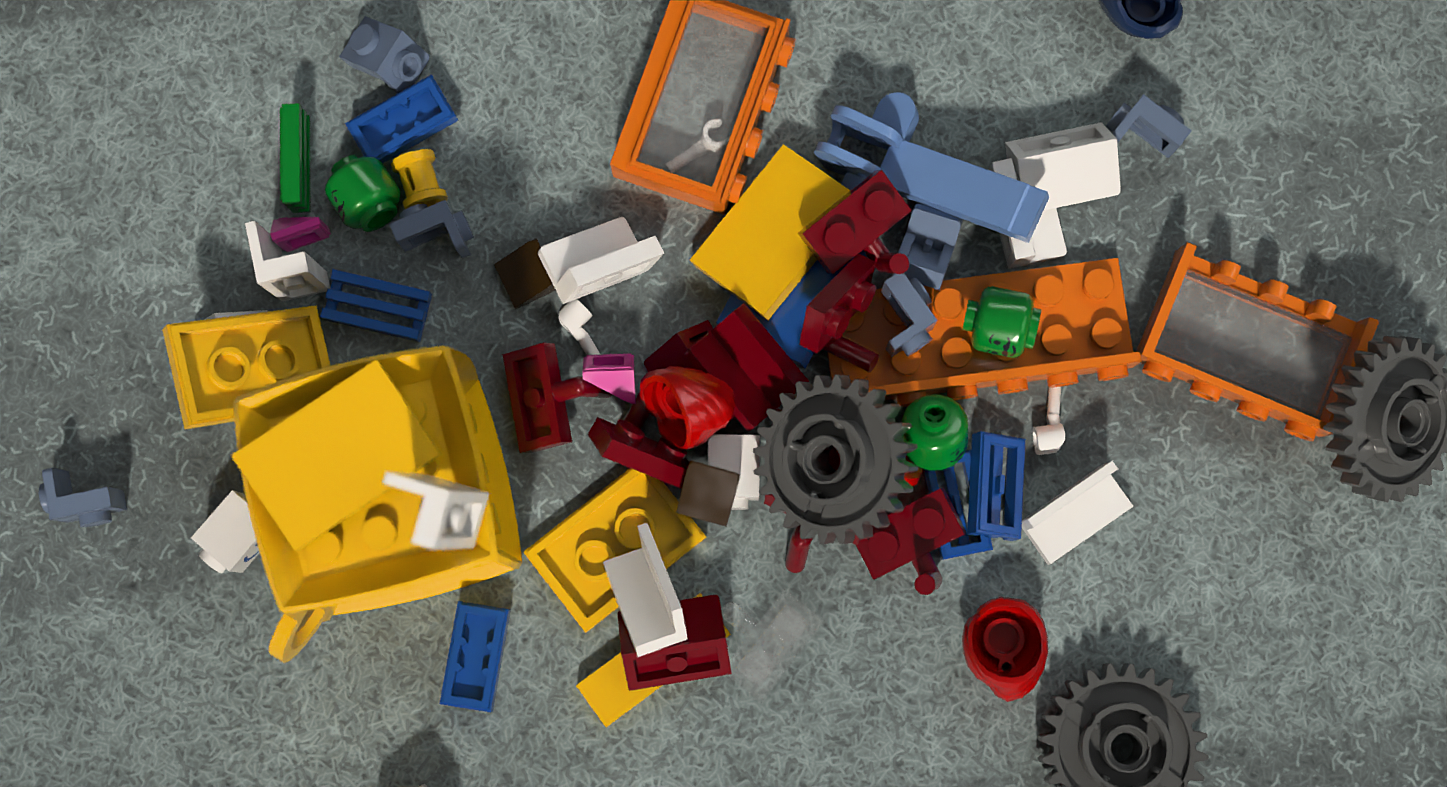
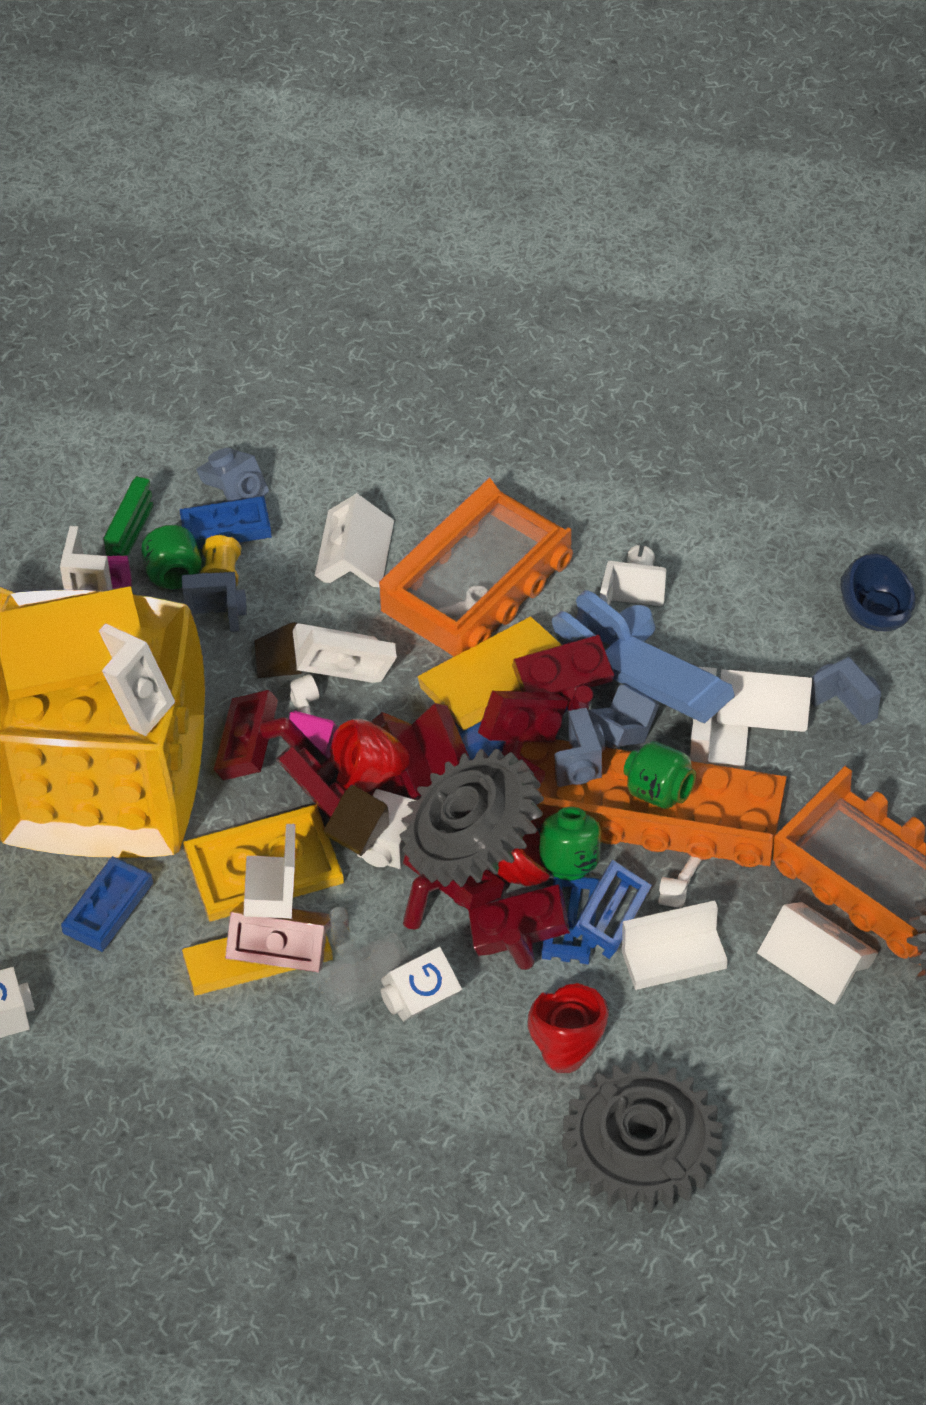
camera: 20 degrees right, 30 degrees down
(553, 101) = (355, 541): none -> white panel
(840, 653) = (419, 985): none -> white brick
(875, 56) = (635, 580): none -> white bracket
(1219, 461) = (815, 950): none -> white panel

